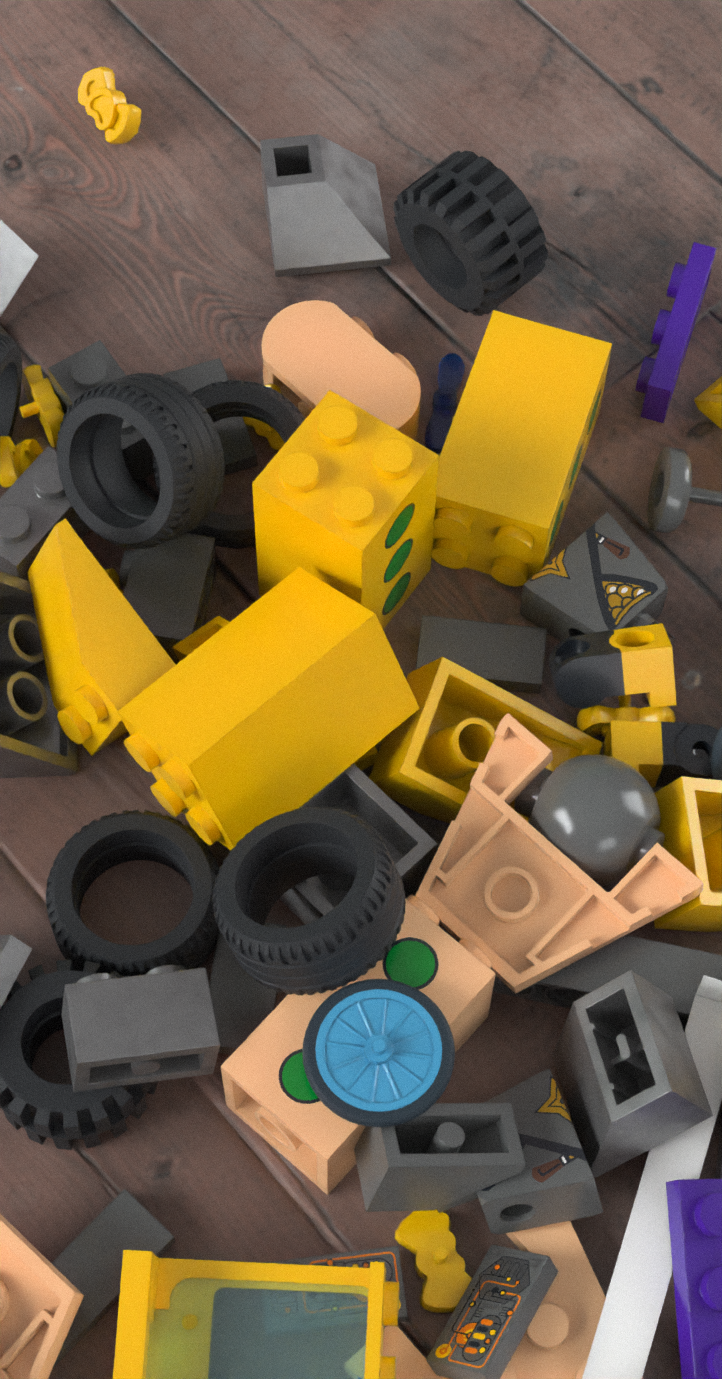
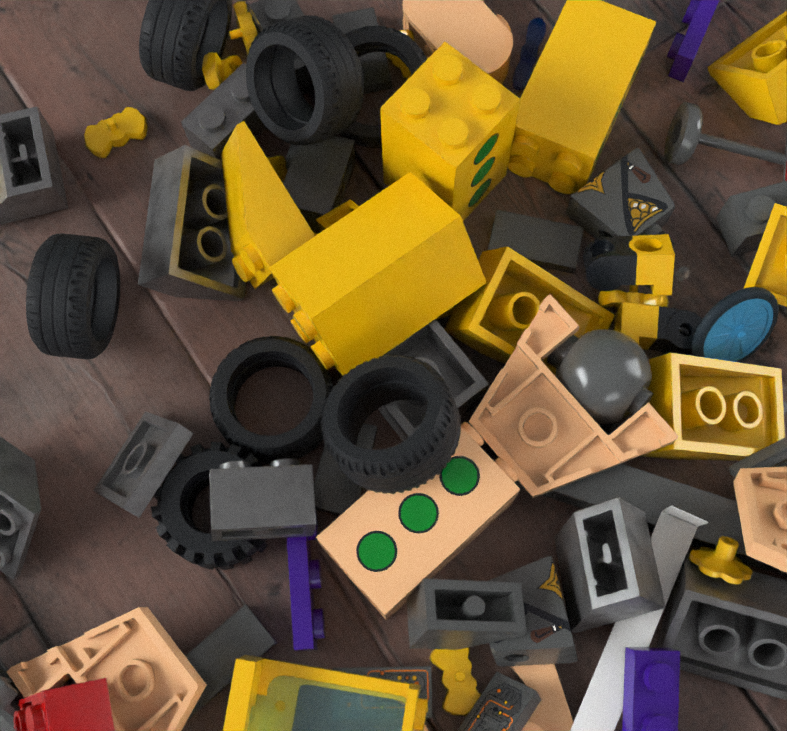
camera: 10 degrees right, 10 degrees up
(206, 1141) = (304, 576): none -> dark purple plate
(378, 1053) = (429, 542): dark azure wheel -> none

